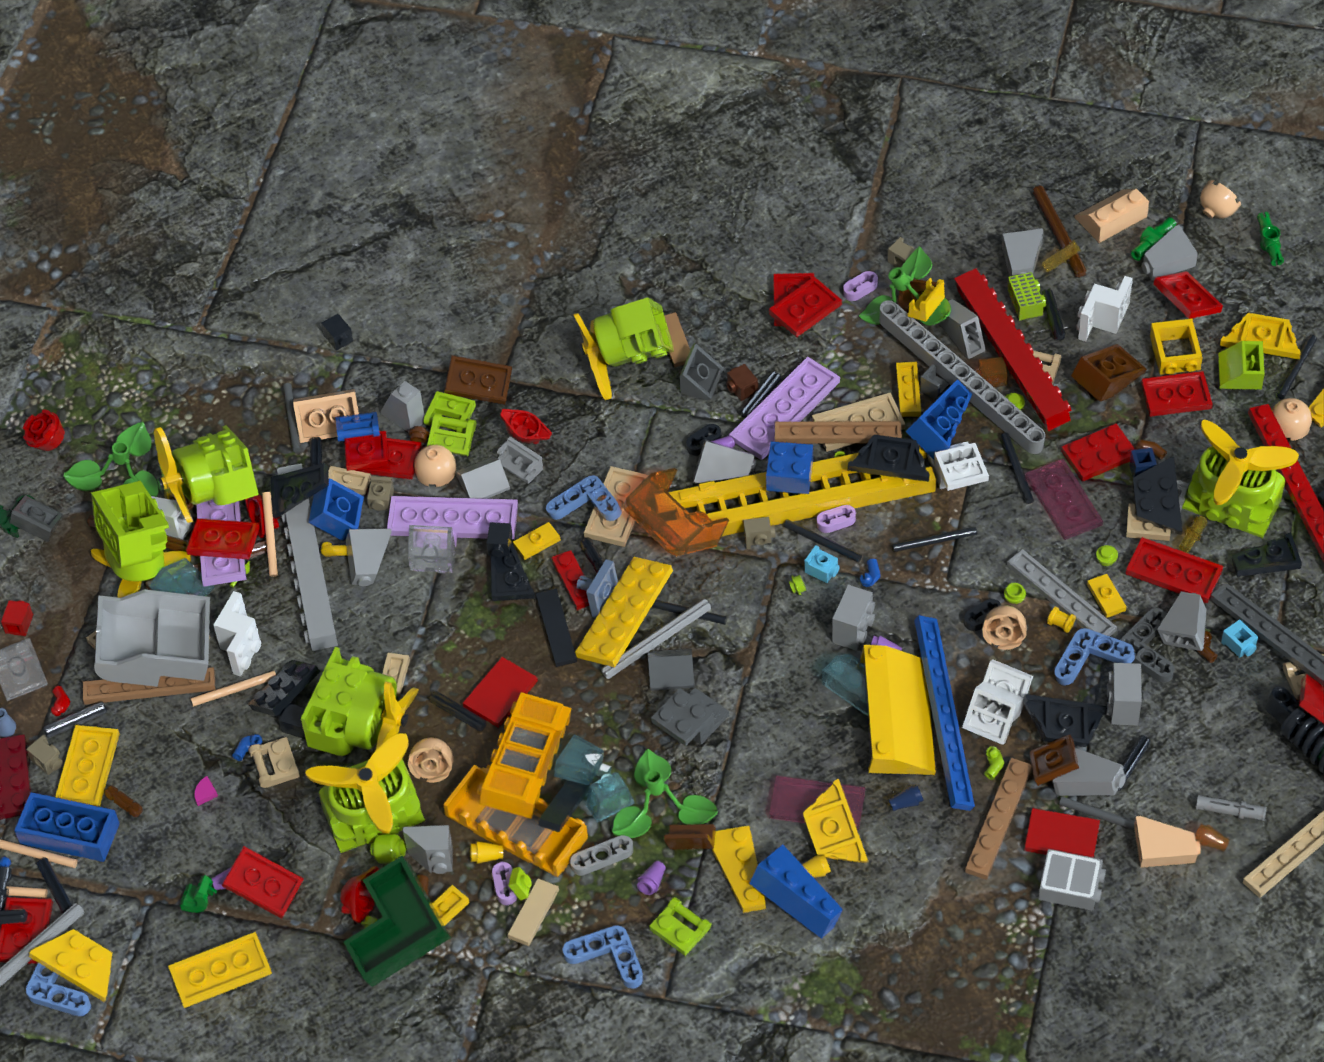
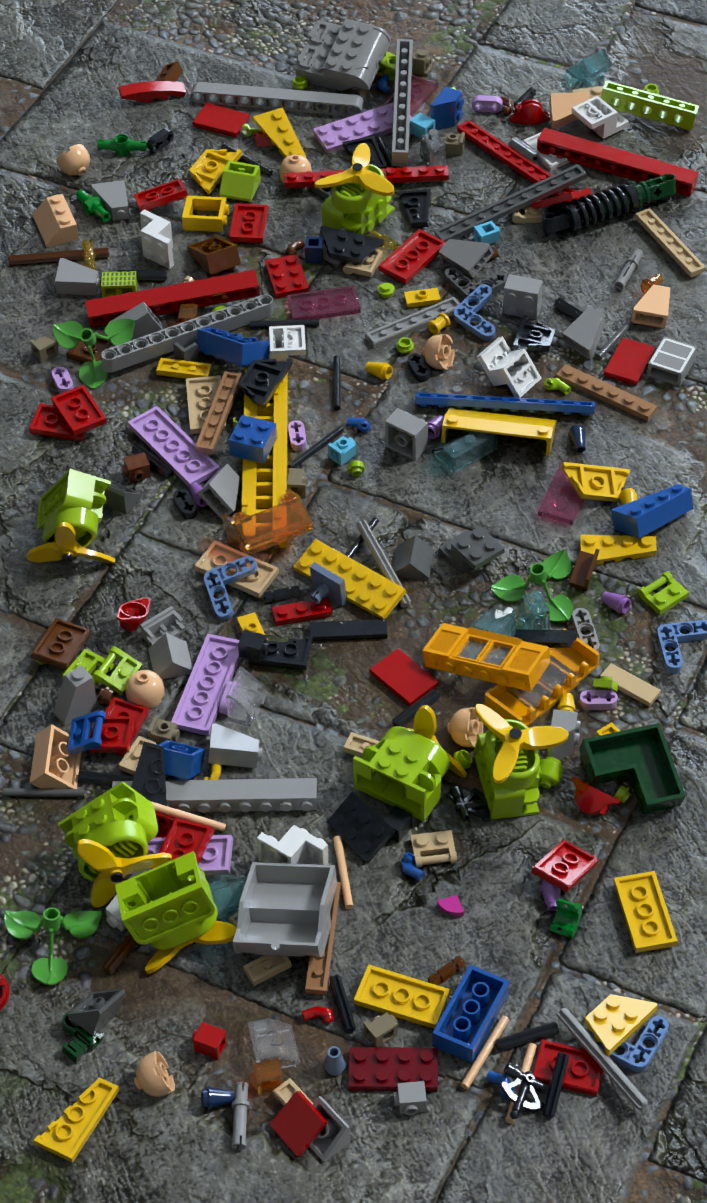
camera: 80 degrees left, 5 degrees down
(927, 302) = (114, 327): yellow hinge -> none
(963, 575) = (379, 369): none -> yellow cone
(1054, 760) = (569, 346): reddish brown tile -> none
(1294, 273) = (160, 140): none -> black beam

